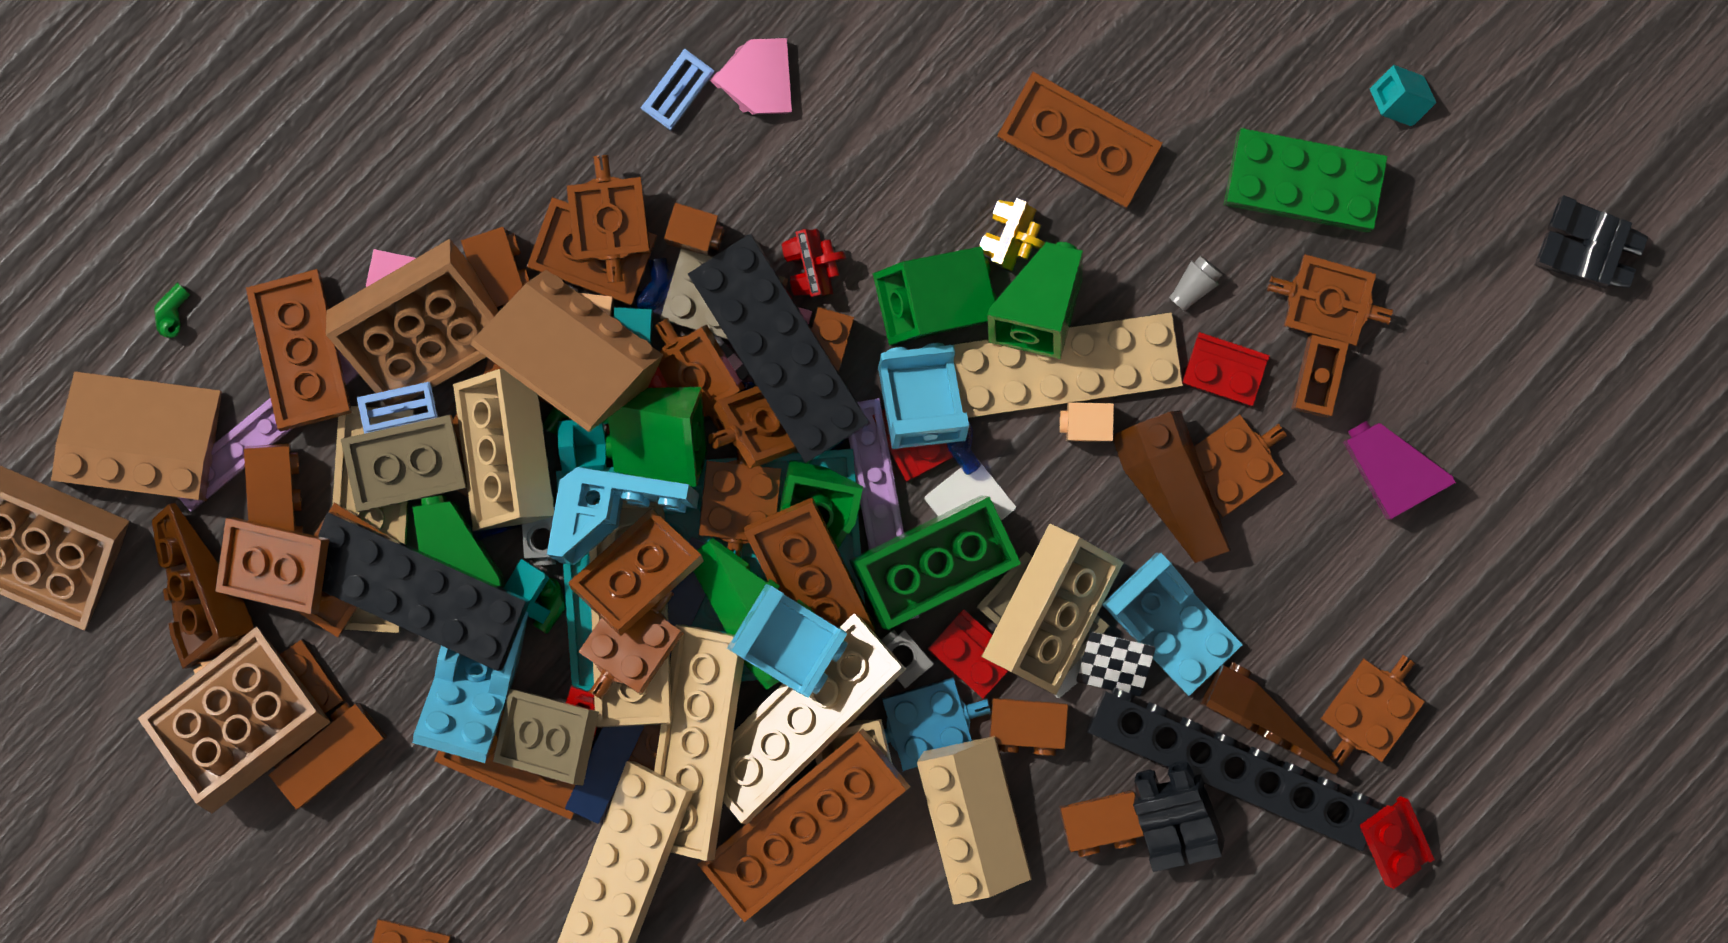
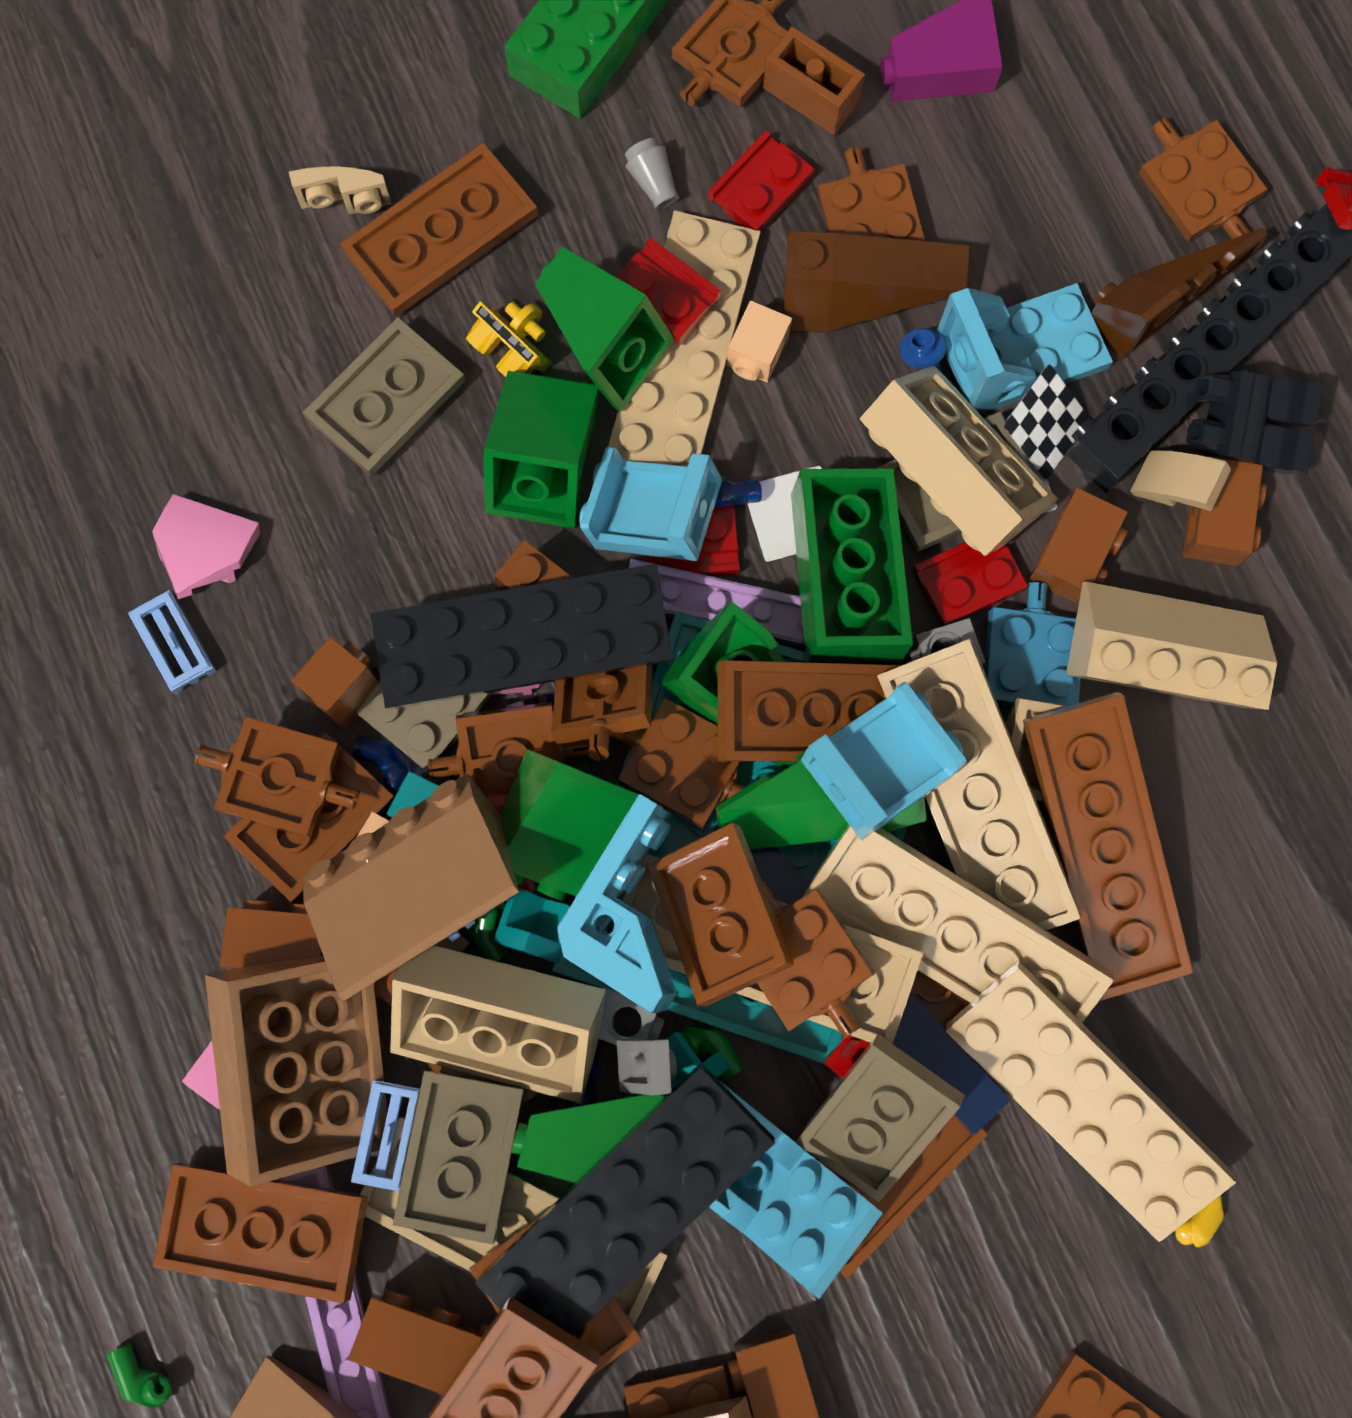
camera: 65 degrees left, 10 degrees down
(513, 564) = (645, 1066): none -> light grey plate
(818, 263) = (420, 568): red hips -> none
(928, 159) = (384, 396): none -> dark tan plate
(1082, 61) = (358, 188): none -> tan slope
(1096, 335) = (672, 287): none -> red plate
(1107, 779) = (1181, 478): none -> tan slope
(1134, 548) = (922, 348): none -> blue plate

